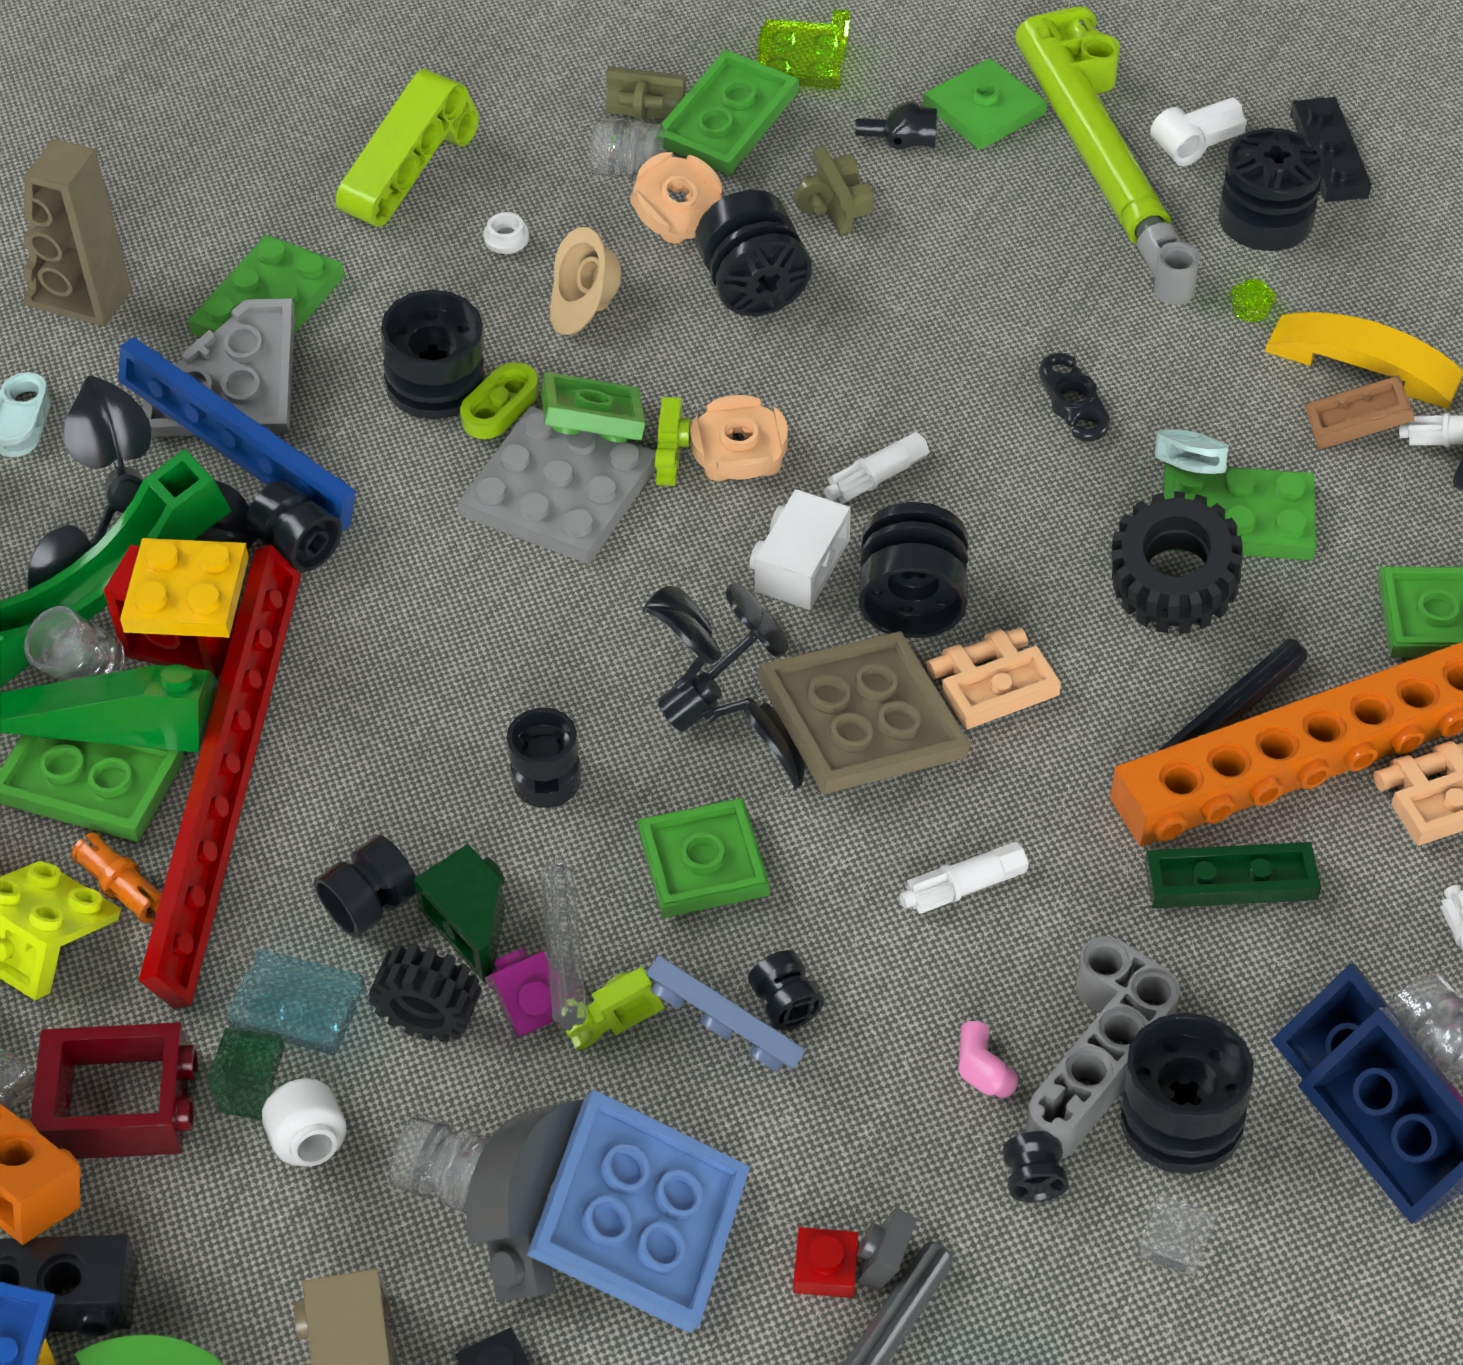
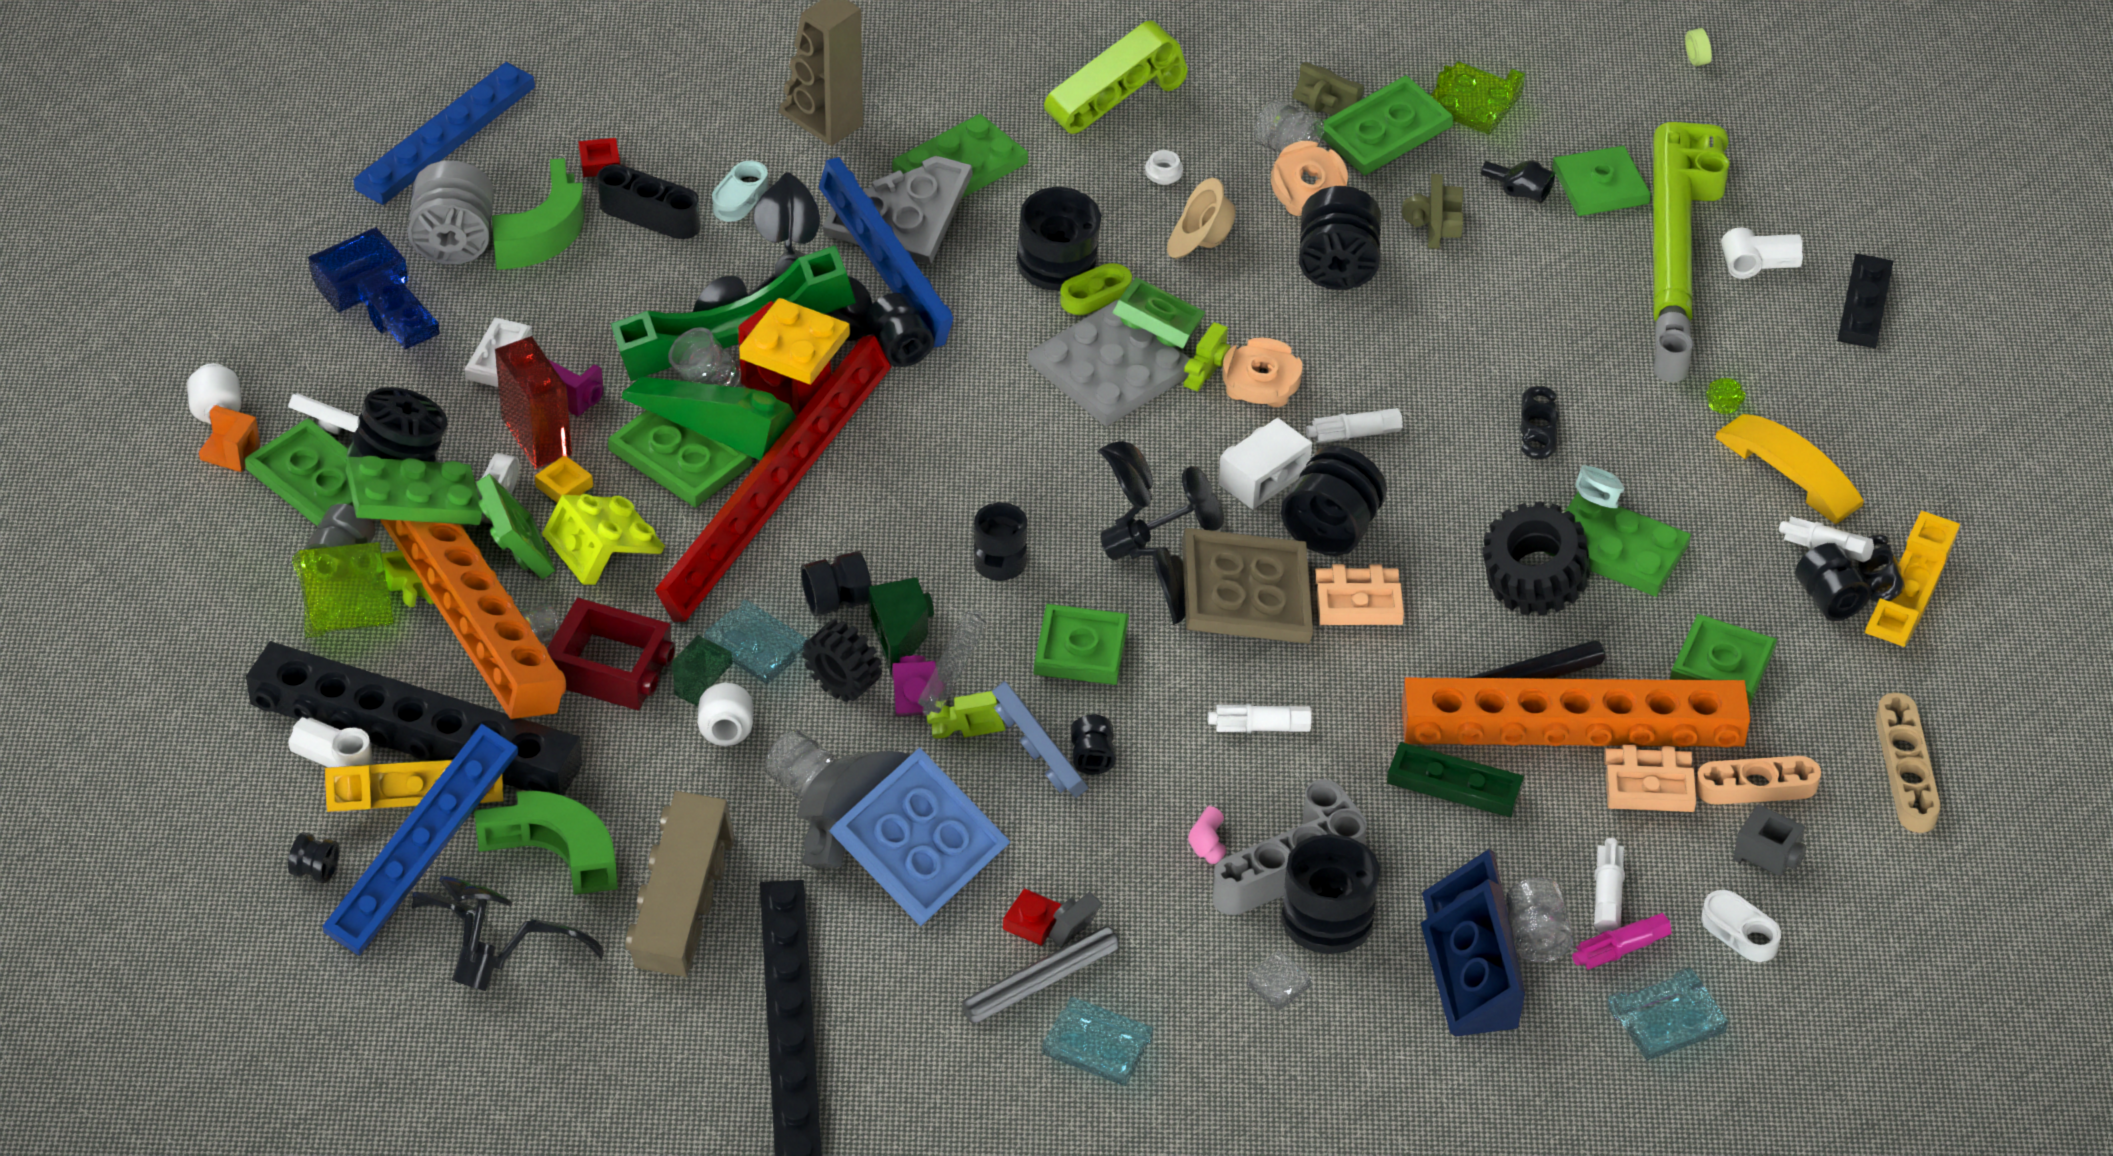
camera: 20 degrees right, 5 degrees down
(117, 876) = (671, 523): orange pin -> none
(1035, 1167) = (1204, 907): black wheel -> none
(1271, 189) = (1784, 314): black wheel -> none
(1359, 412) = (1753, 501): medium nougat plate -> none

